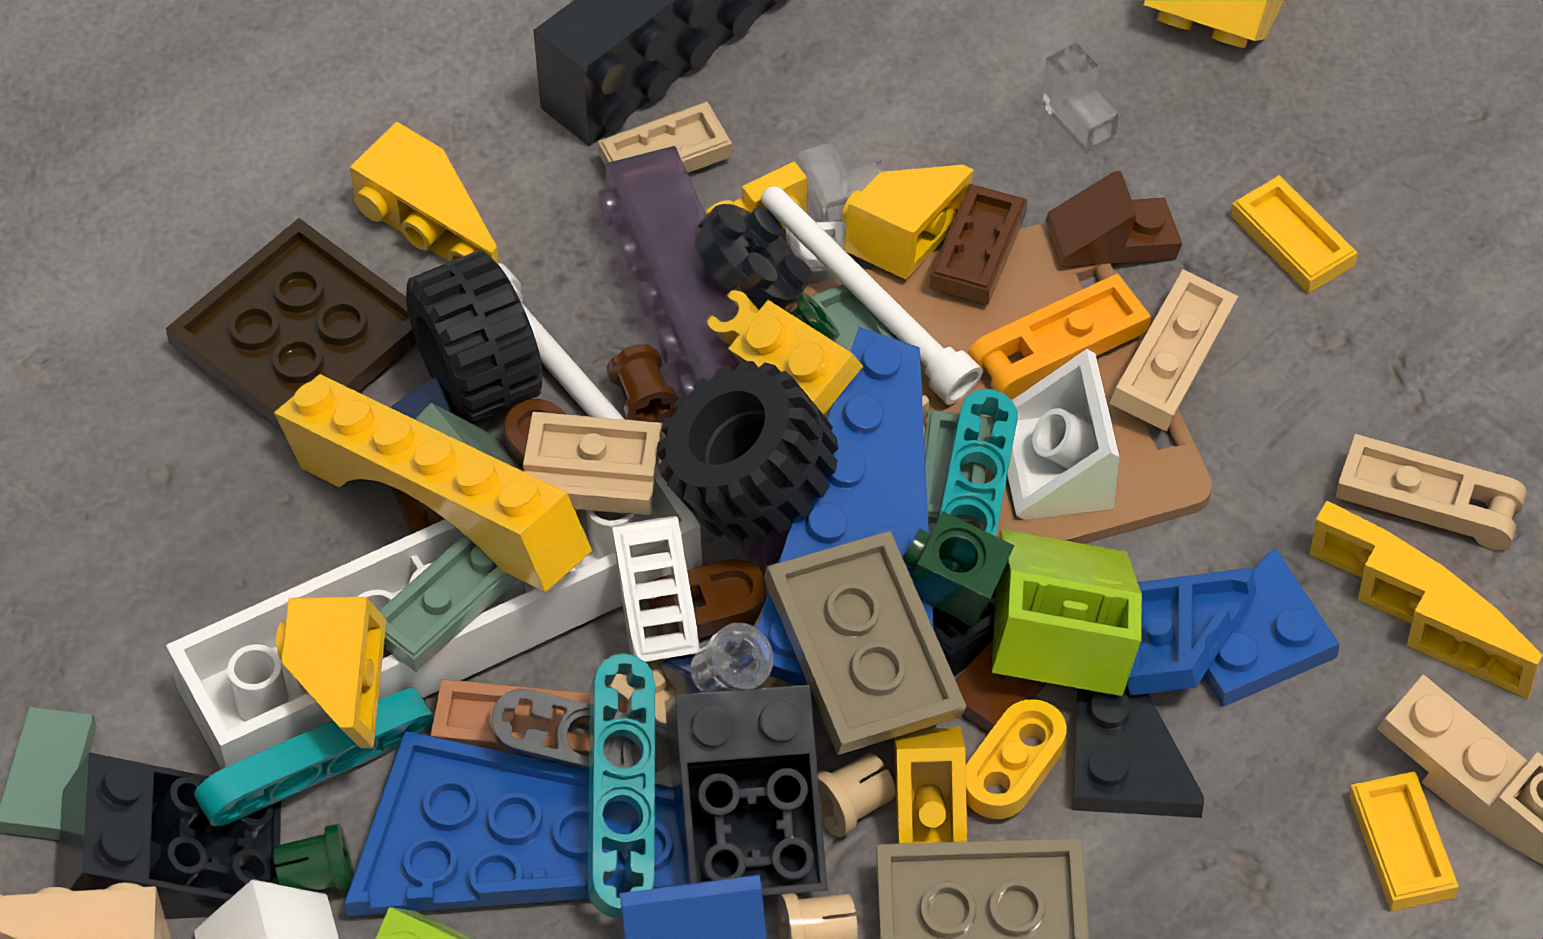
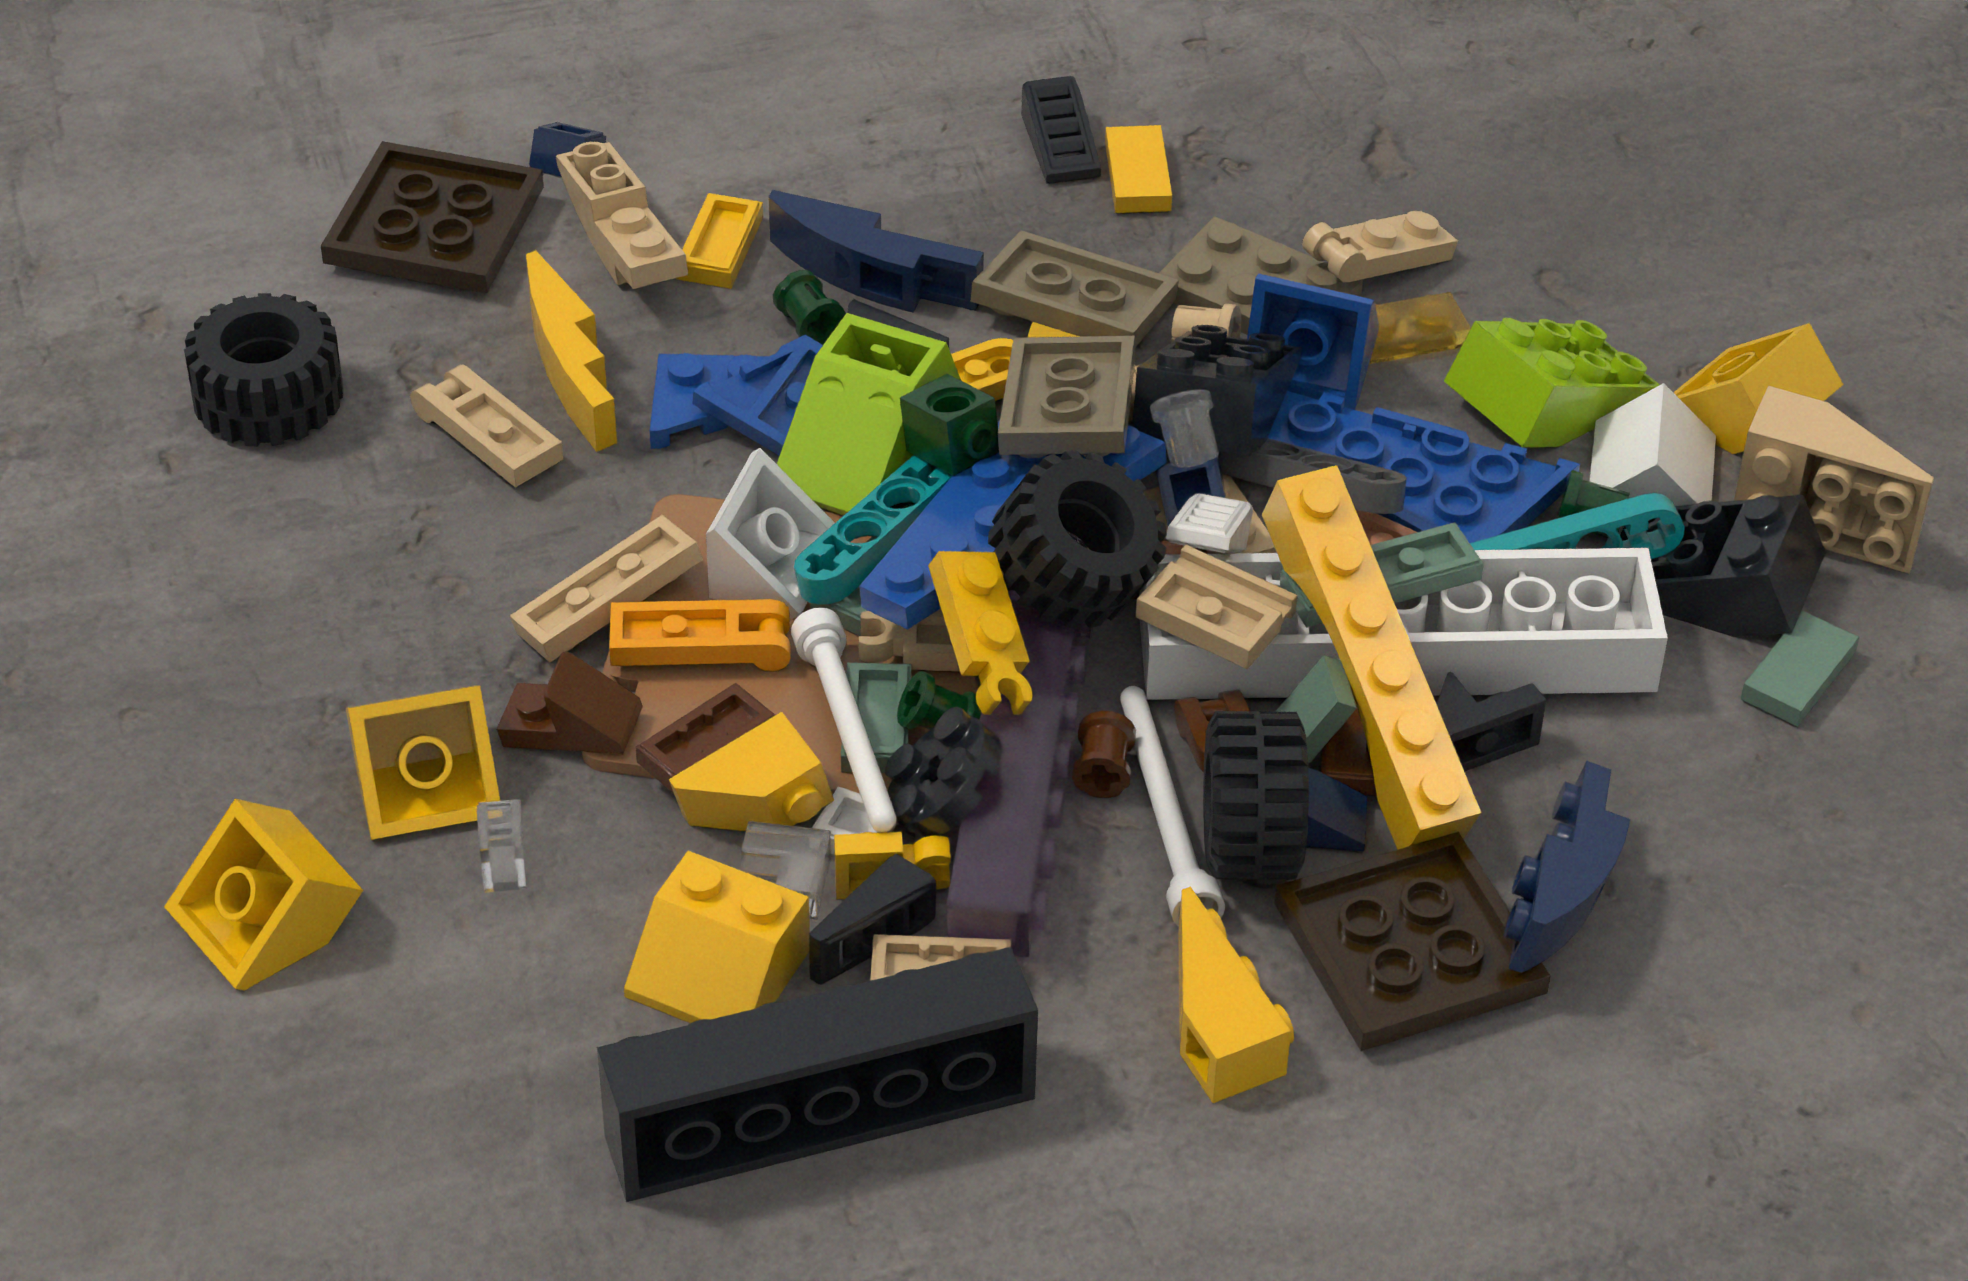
camera: 155 degrees left, 10 degrees down
(174, 402) = (1568, 872): none -> dark blue slope
(322, 542) = (1493, 726): none -> black slope
(337, 656) = (1528, 525): yellow slope -> none
(614, 784) = (1317, 416): teal beam -> none
(742, 152) = (889, 902): none -> black slope
(846, 99) = (717, 942): none -> yellow slope
(1202, 142) = (423, 760): none -> yellow slope
(1236, 766) = (803, 300): none -> dark green bush
(1253, 859) = (872, 263): none -> dark blue slope
(1294, 234) = (402, 656): yellow tile -> none

